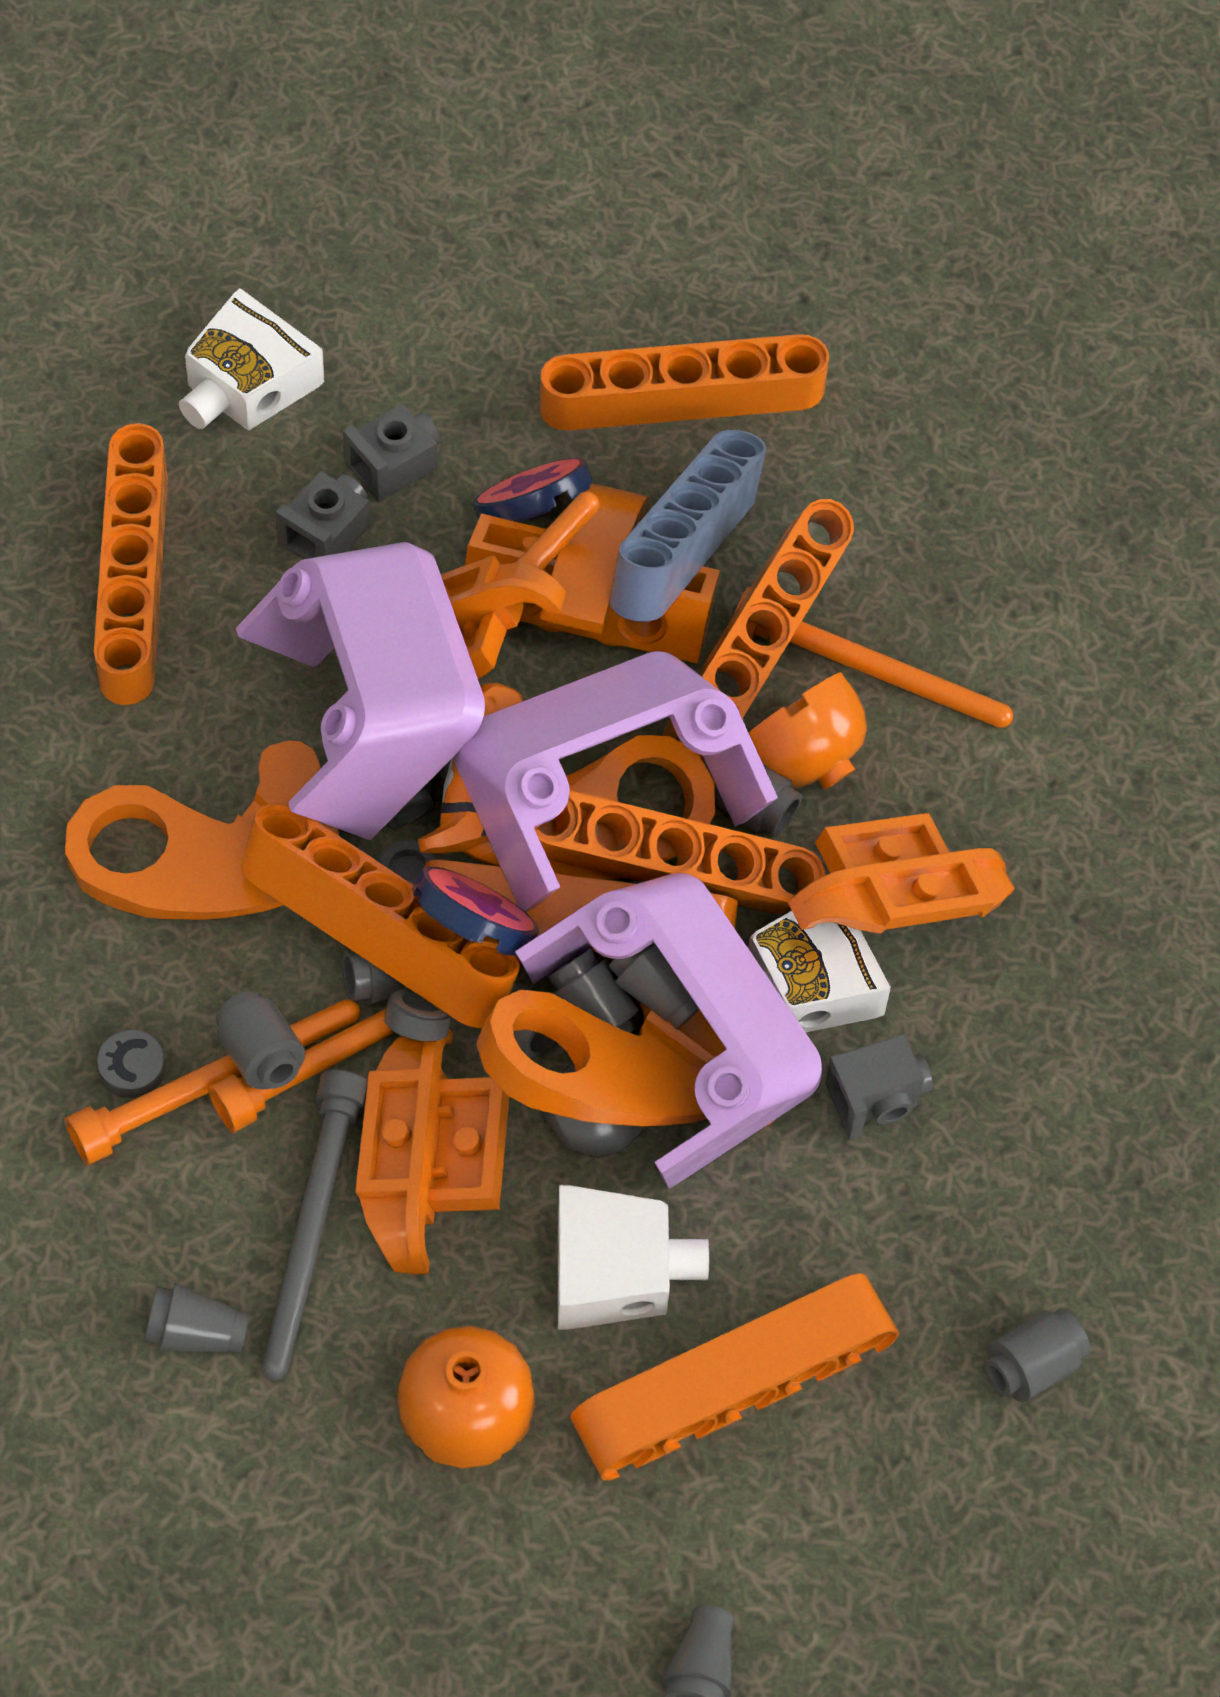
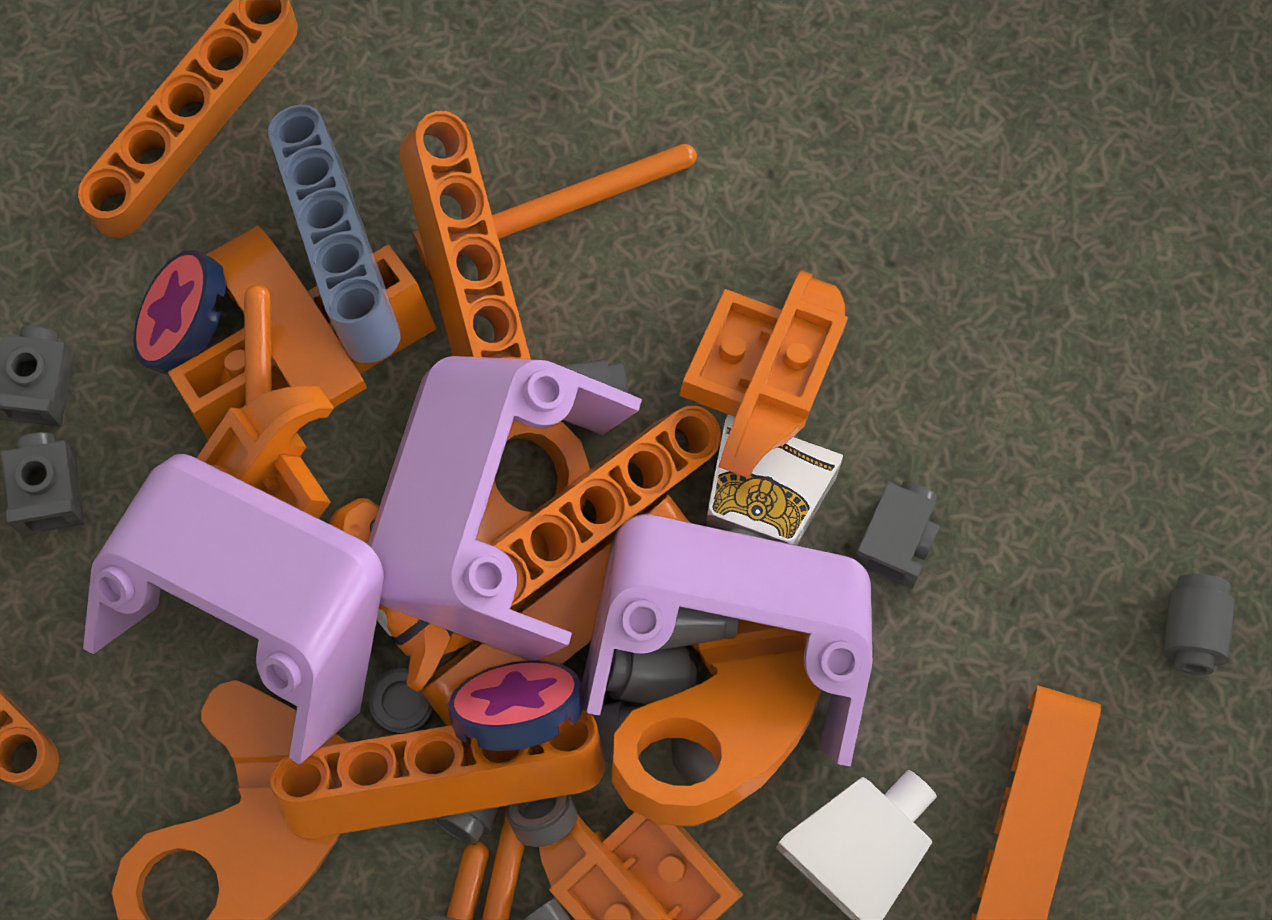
camera: 40 degrees left, 15 degrees up
(814, 734) = (583, 308): orange cylinder -> none

